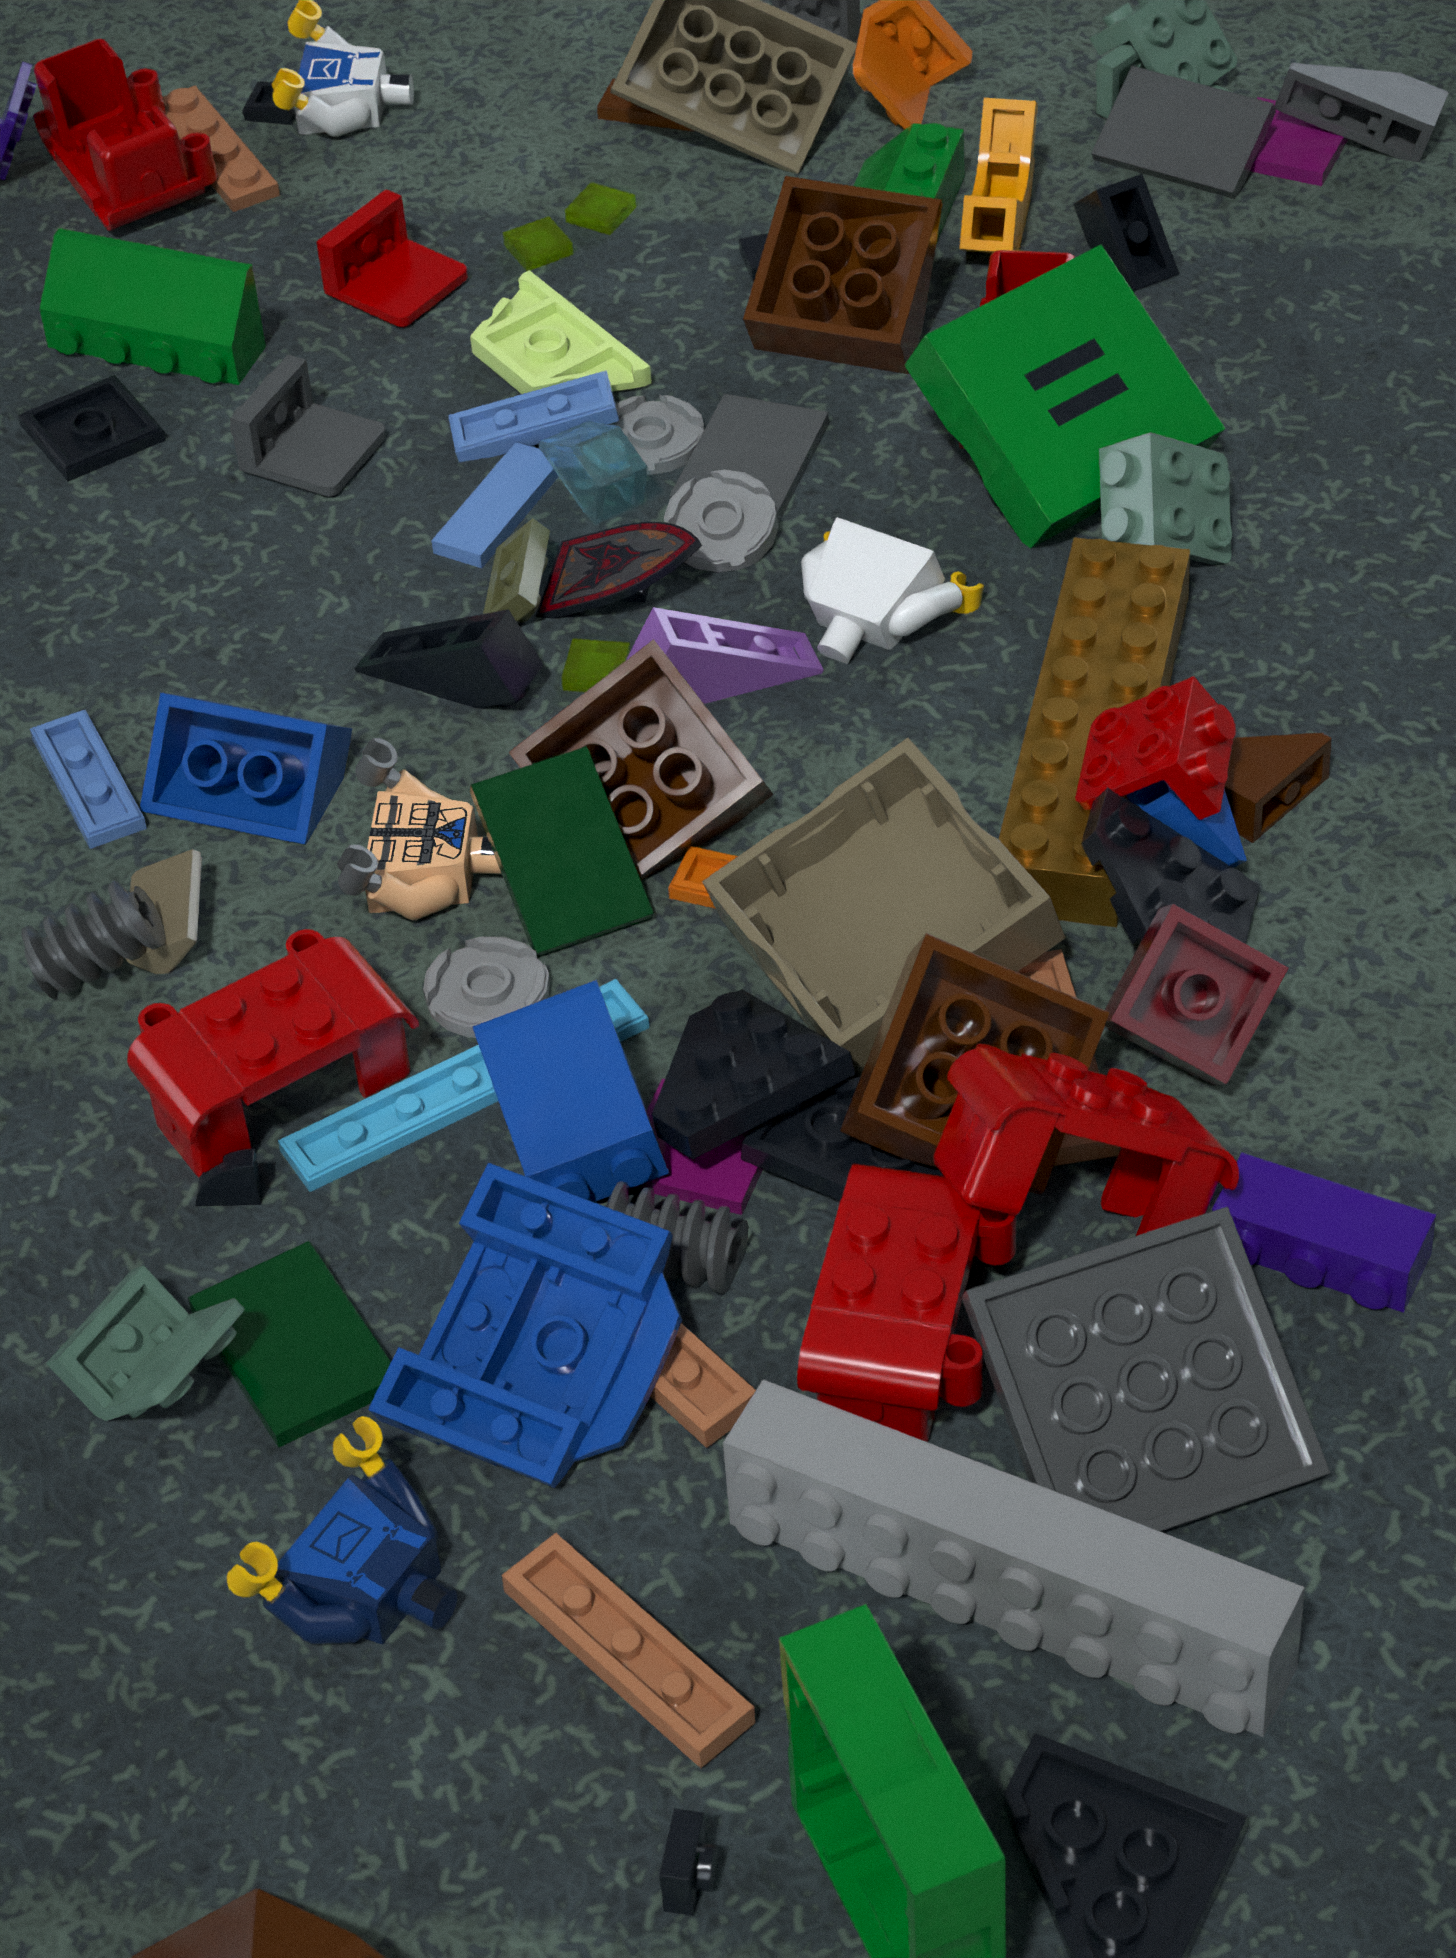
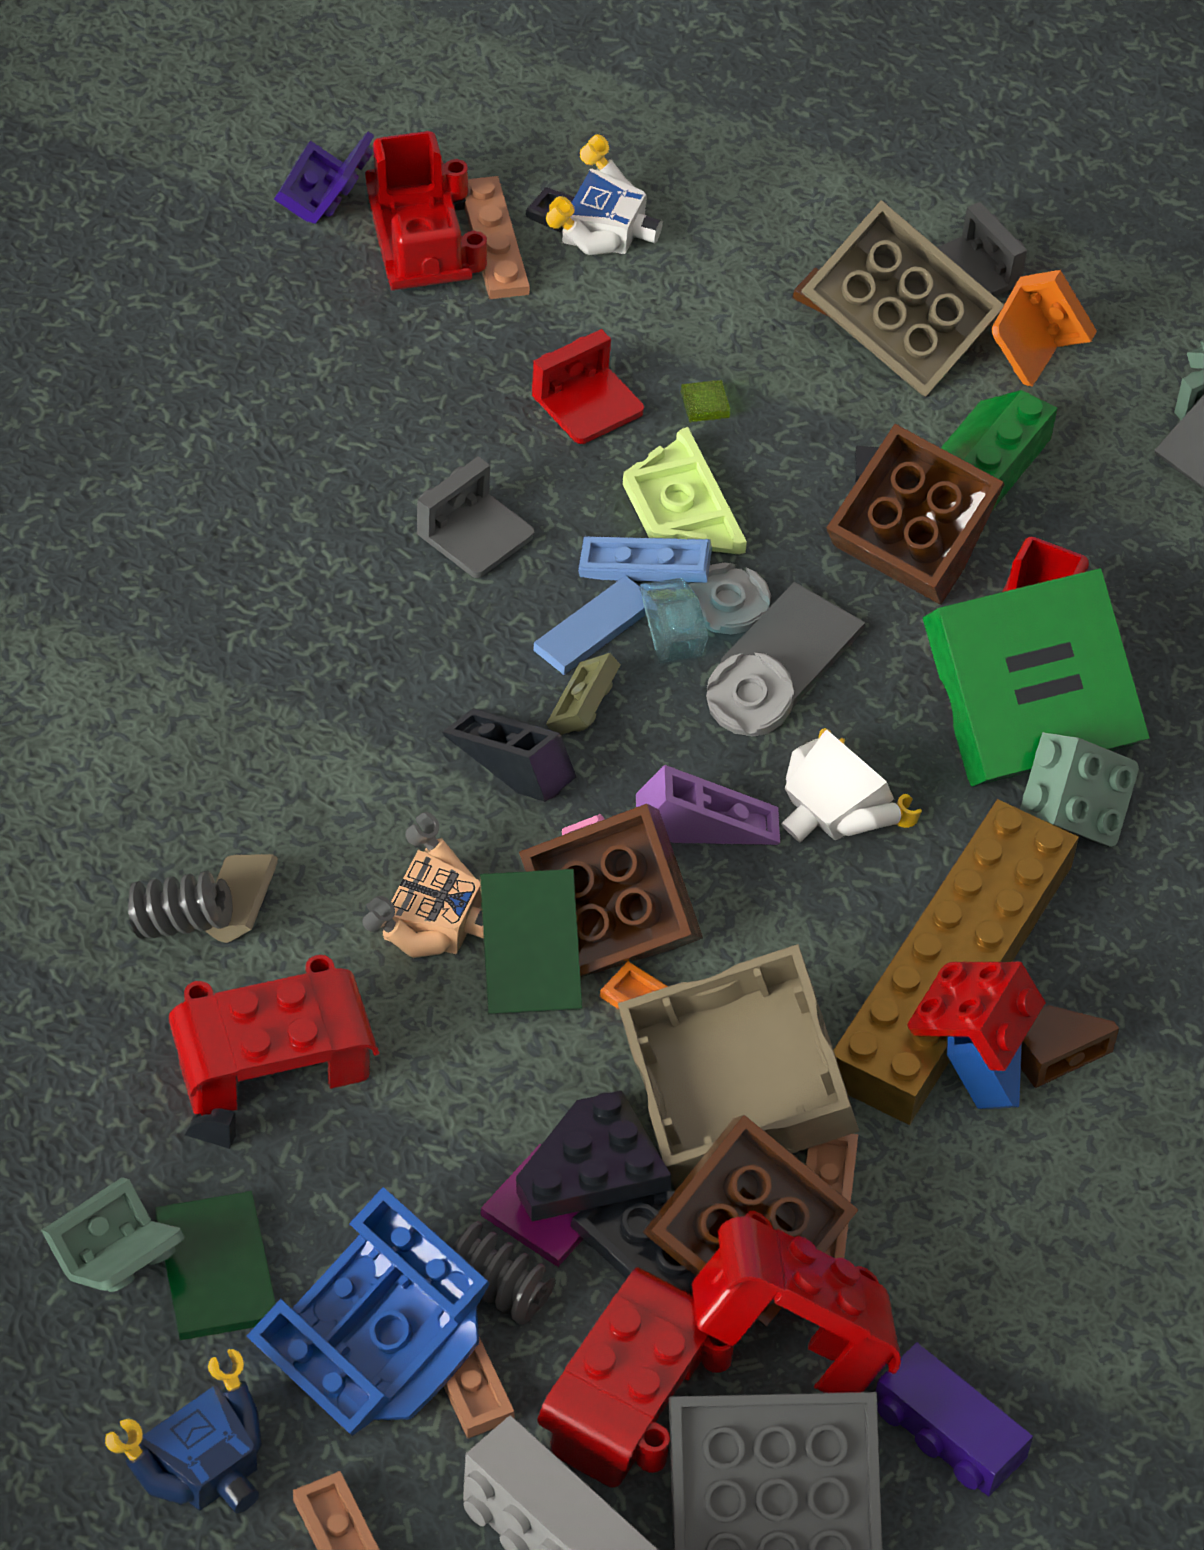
camera: 10 degrees right, 5 degrees up
(88, 779) = (222, 765): medium blue tile -> none
(91, 428) = (321, 462): black tile -> none
(151, 307) = (395, 378): green slope -> none
(242, 768) = (333, 793): blue slope -> none
(415, 1107) = (401, 1101): medium azure tile -> none
(463, 1004) = (444, 1042): light grey tile -> none
(570, 1095) = (464, 1147): blue slope -> none
(591, 661) = (615, 787): clear neon green tile -> none
(600, 208) = (763, 383): clear neon green tile -> none
(614, 566) = (656, 708): shield -> none
(1004, 177) = (1072, 463): light orange arch -> none
(1129, 230) = (1150, 536): black slope -> none
(1160, 868) = (952, 1127): black plate -> none
(1193, 995) = (928, 1210): dark red brick -> none

